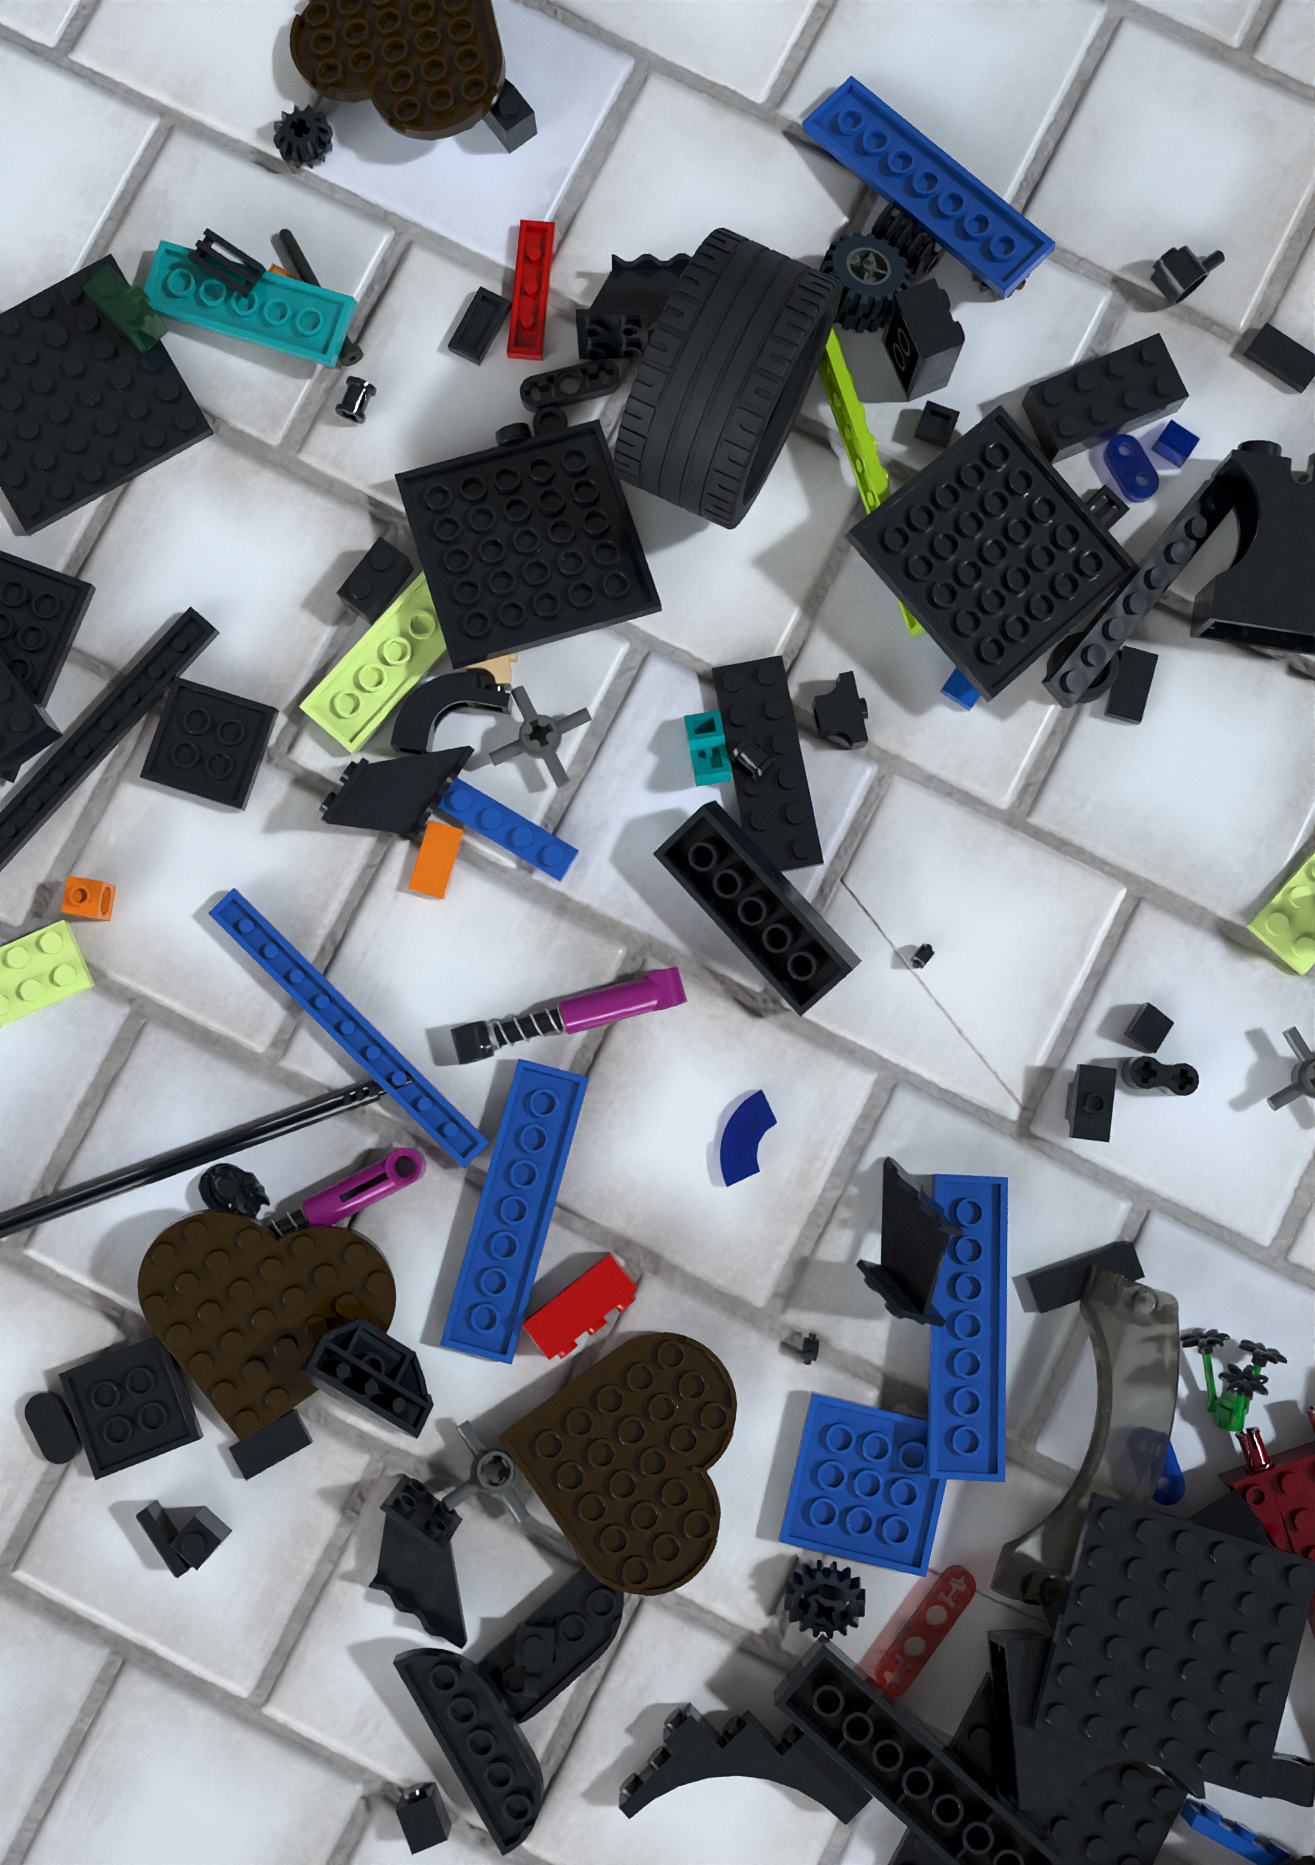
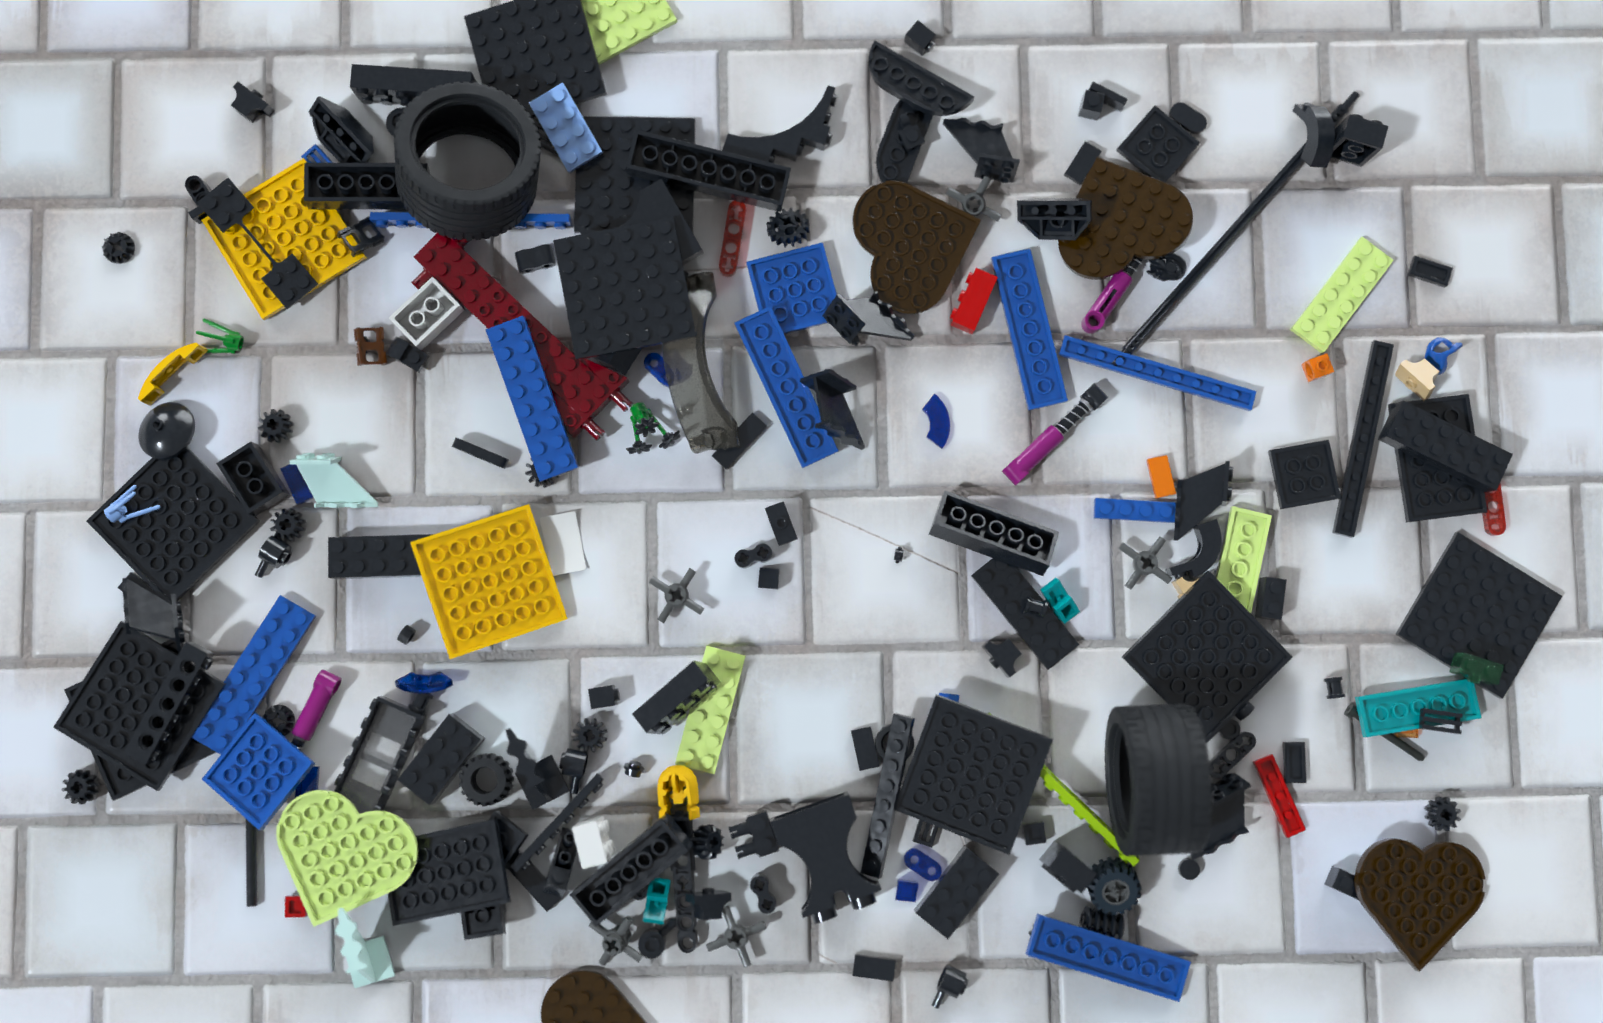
camera: 145 degrees right, 0 degrees up
(775, 1372) = (865, 317): none -> black piece

